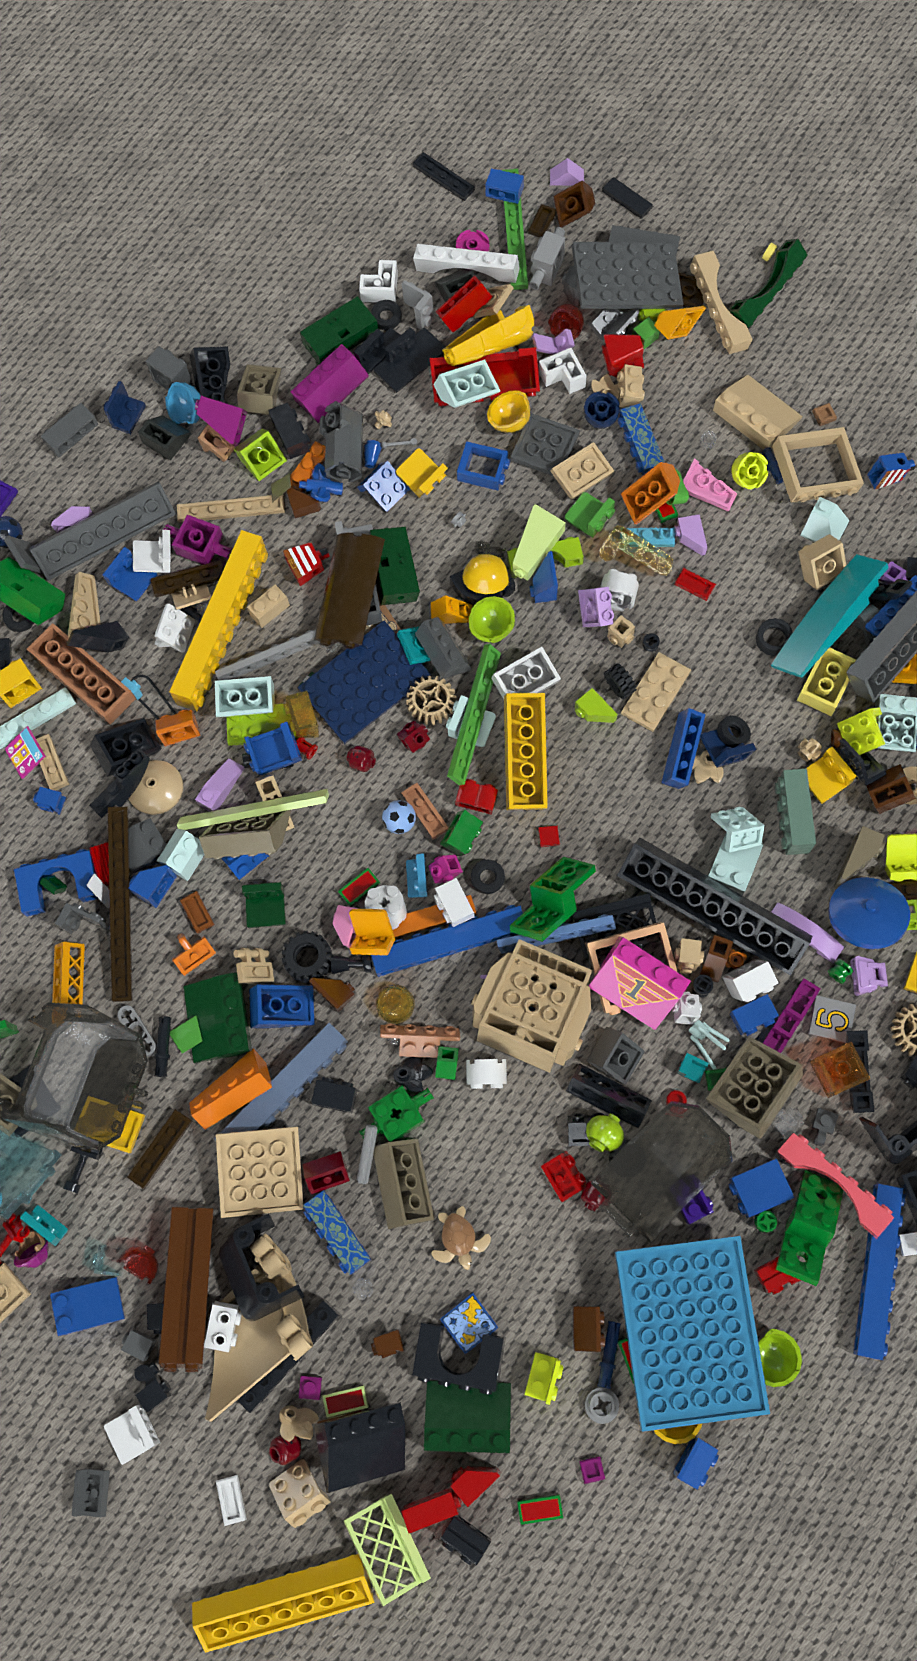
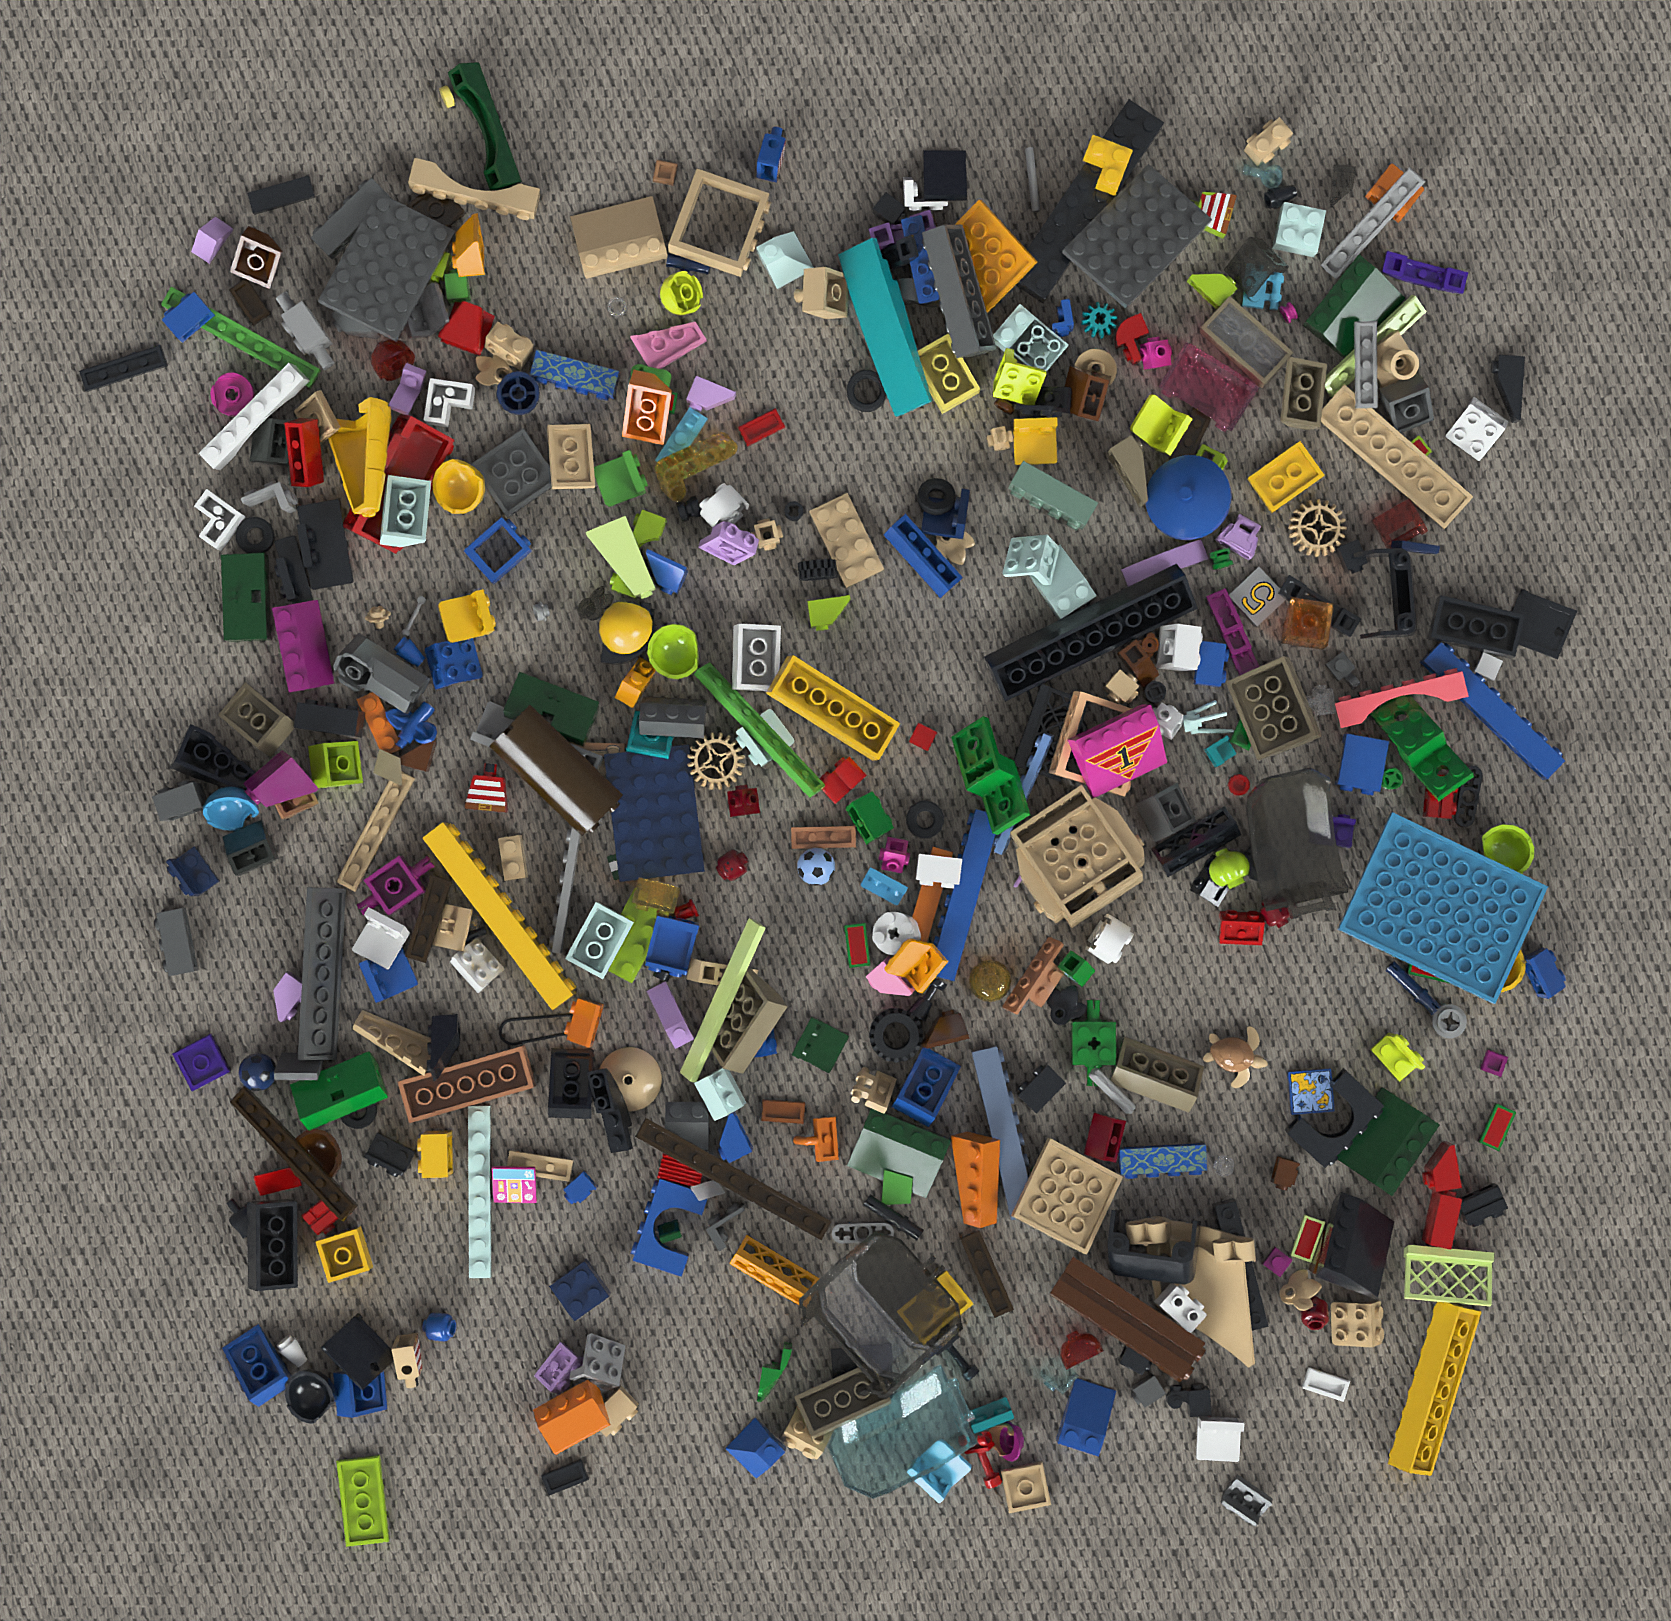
camera: 65 degrees left, 15 degrees up
(133, 686) = (514, 1041): medium azure plate -> none
(587, 1329) = (1381, 993): reddish brown slope -> none
(599, 569) = (688, 509): none -> black wheel
(783, 1309) = (1476, 781): none -> black beam

